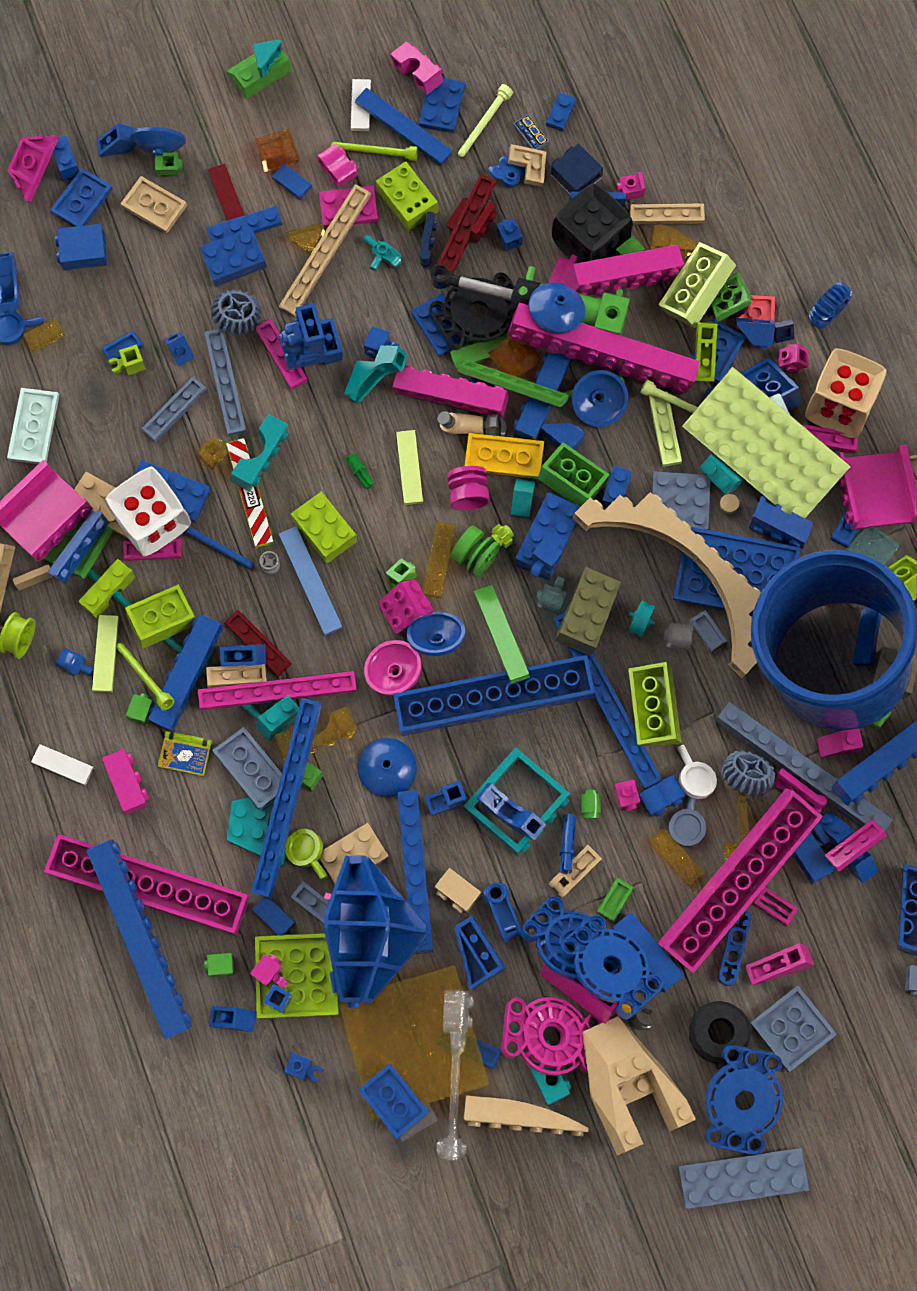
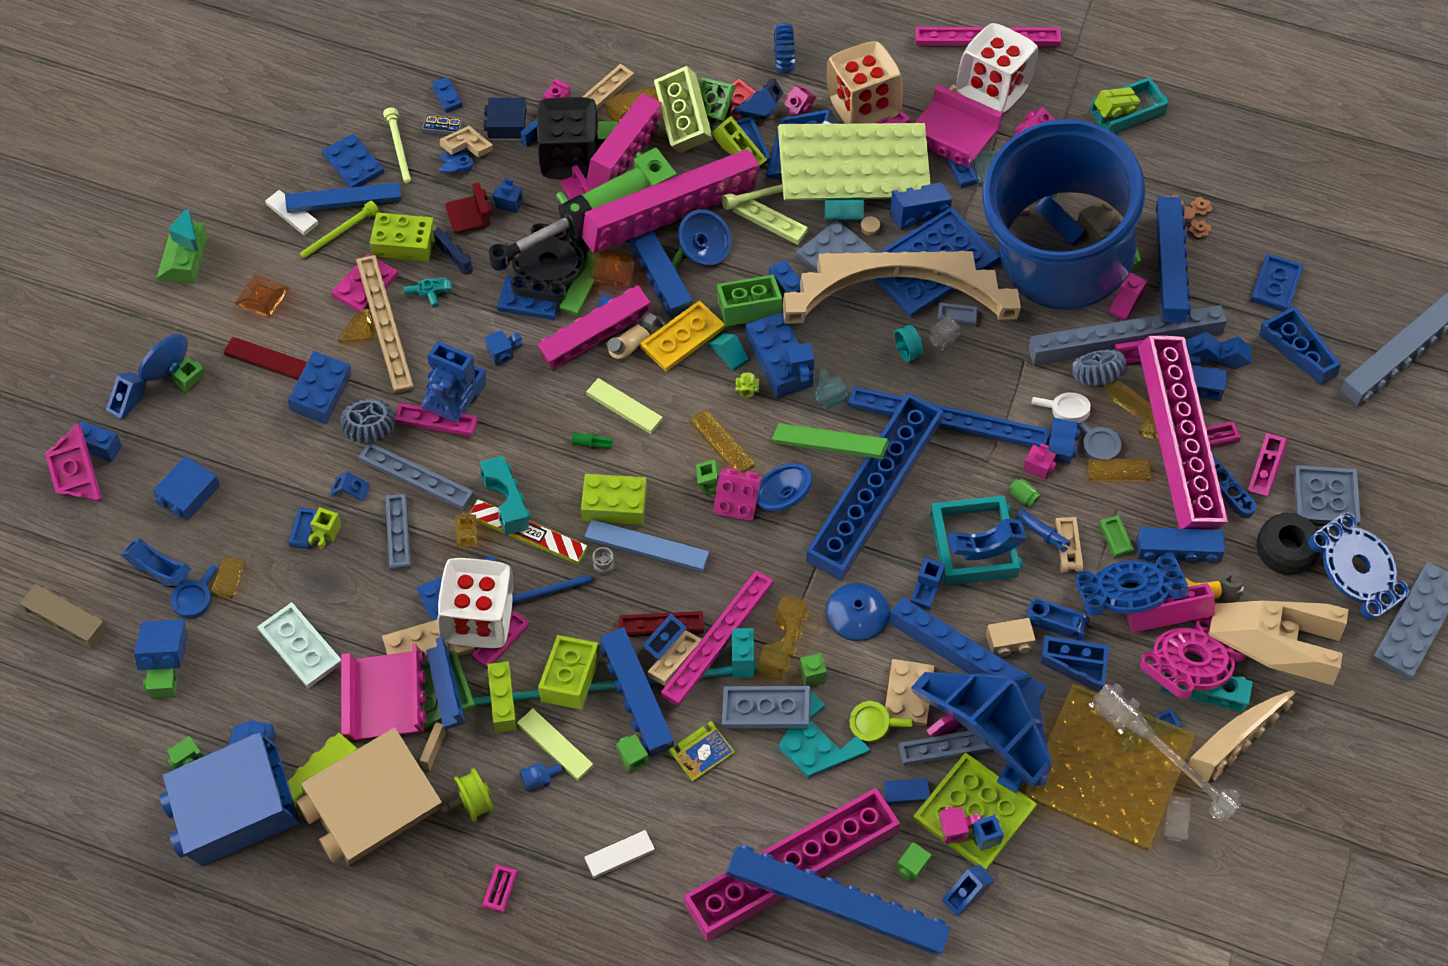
camera: 50 degrees left, 15 degrees down
(81, 199) = (144, 458): blue plate -> none
(126, 781) = (684, 813): dark pink brick -> none
(153, 204) = (209, 411): tan plate -> none
(163, 699) = (647, 721): lime piece -> none
(258, 220) = (313, 340): blue plate -> none
(286, 797) = (820, 694): blue plate -> none
(292, 181) = (300, 304): blue tile -> none
(301, 1067) = (1058, 868): blue brick -> none
(337, 166) = (324, 263): dark pink brick -> none
(368, 374) = (519, 371): teal arch -> none
(388, 659) = (777, 529): dark pink dish -> none
(393, 1101) = (1150, 814): blue plate -> none
(426, 74) = (294, 150): arch -> none
(462, 231) = (468, 215): dark red tile -> none
(468, 488) = (687, 374): dark pink wheel -> none
(473, 549) = (744, 408): bright green wheel -> none
(513, 383) = (634, 279): bright green tile -> none
(556, 315) = (614, 194): blue dish -> none
(563, 433) = (705, 286): blue slope -> none
(587, 611) = (868, 372): olive brick -> none
(610, 987) = (1198, 563): blue piece -> none
(655, 705) = (986, 386): lime slope -> none
(855, 845) = (1222, 339): dark pink plate -> none

